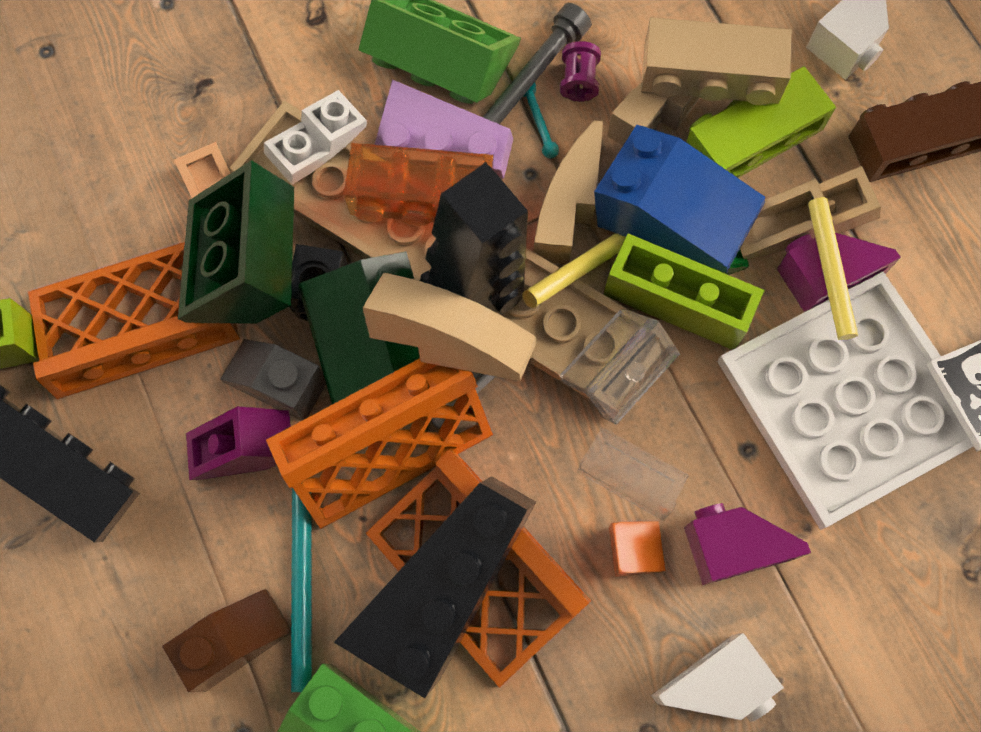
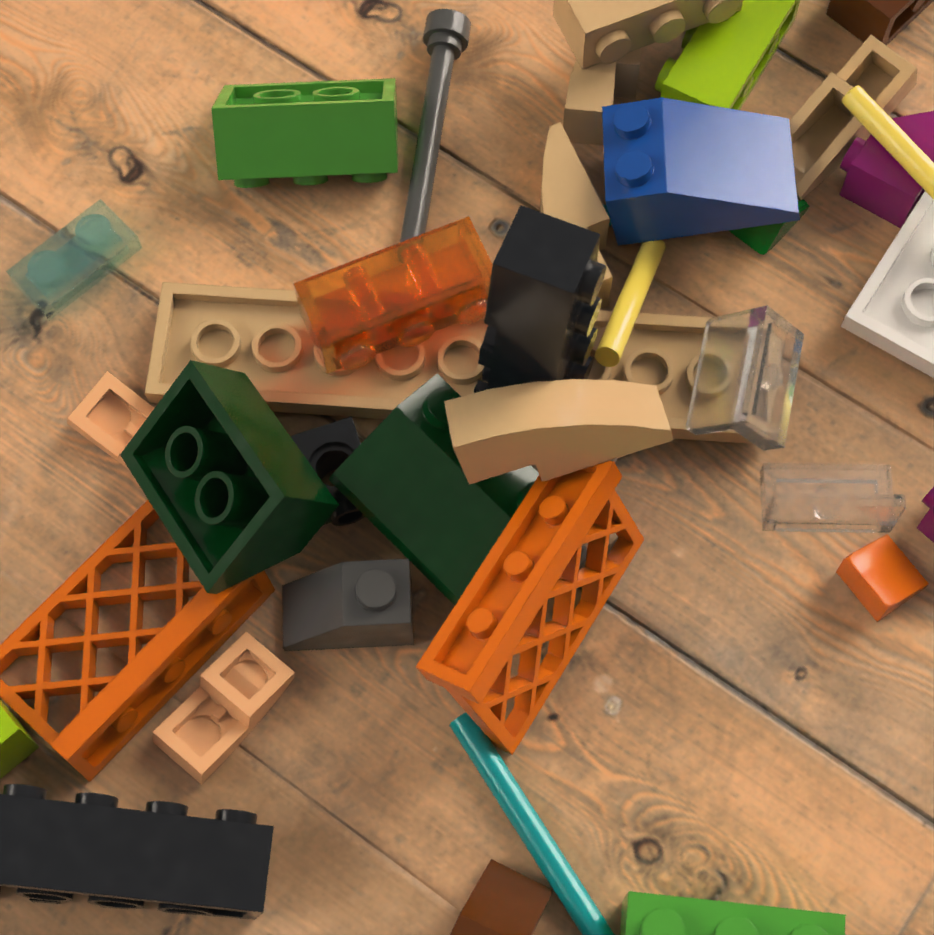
camera: 30 degrees left, 5 degrees down
(161, 399) = (225, 708): none -> light nougat slope
(234, 442) = (357, 707): magenta slope -> none
(244, 58) = (74, 259): none -> clear light blue plate
(319, 136) = (233, 304): white slope -> none
(427, 122) = (350, 224): lavender wing -> none
(434, 597) = (708, 743): black wedge -> none
(526, 555) = (744, 638): orange fence -> none
(550, 149) = (507, 187): teal hinge -> none
(580, 71) = (504, 86): magenta bush -> none
(682, 292) = (763, 265): lime brick -> none

